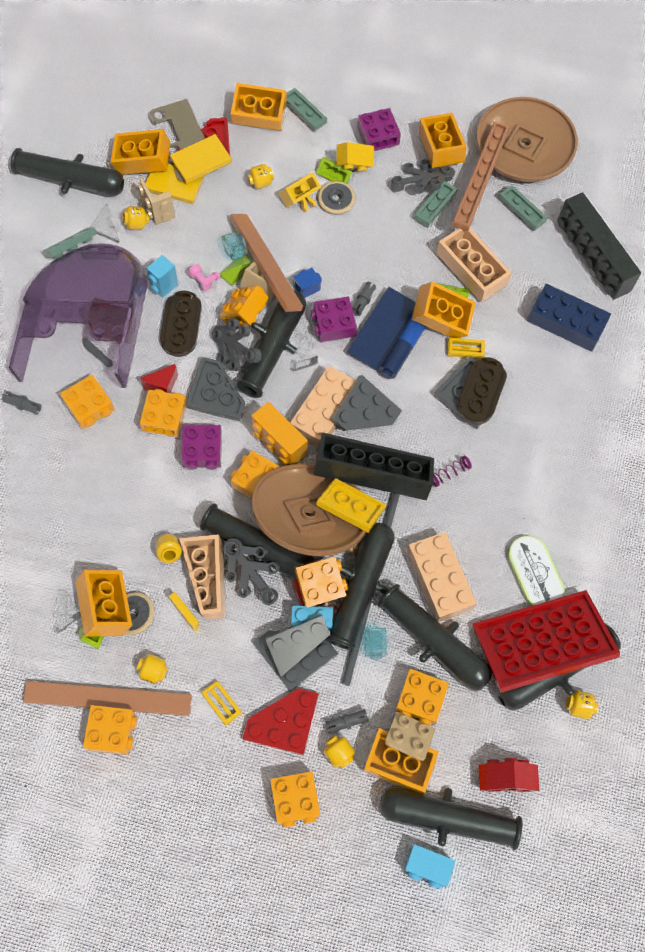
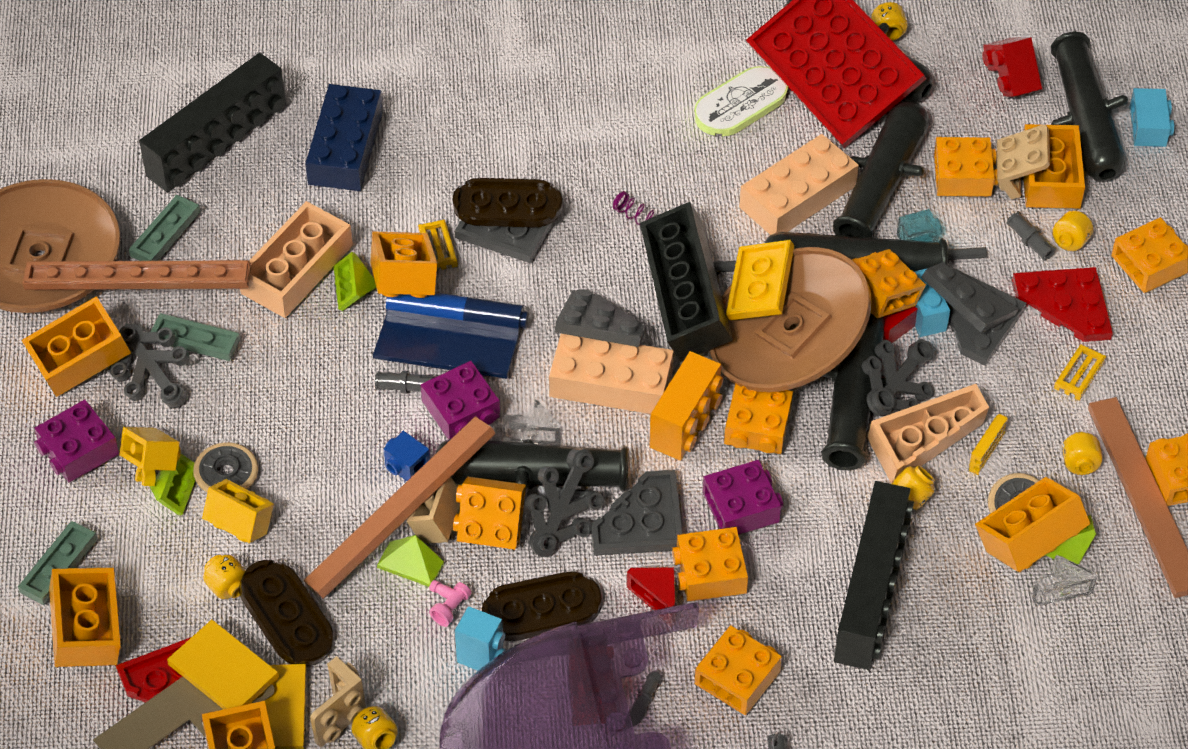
camera: 105 degrees left, 15 degrees down
(112, 495) = (874, 576): none -> pearl dark grey brick
(226, 197) = (286, 613): none -> dark brown tile
(234, 245) = (378, 567): clear light blue brick -> none

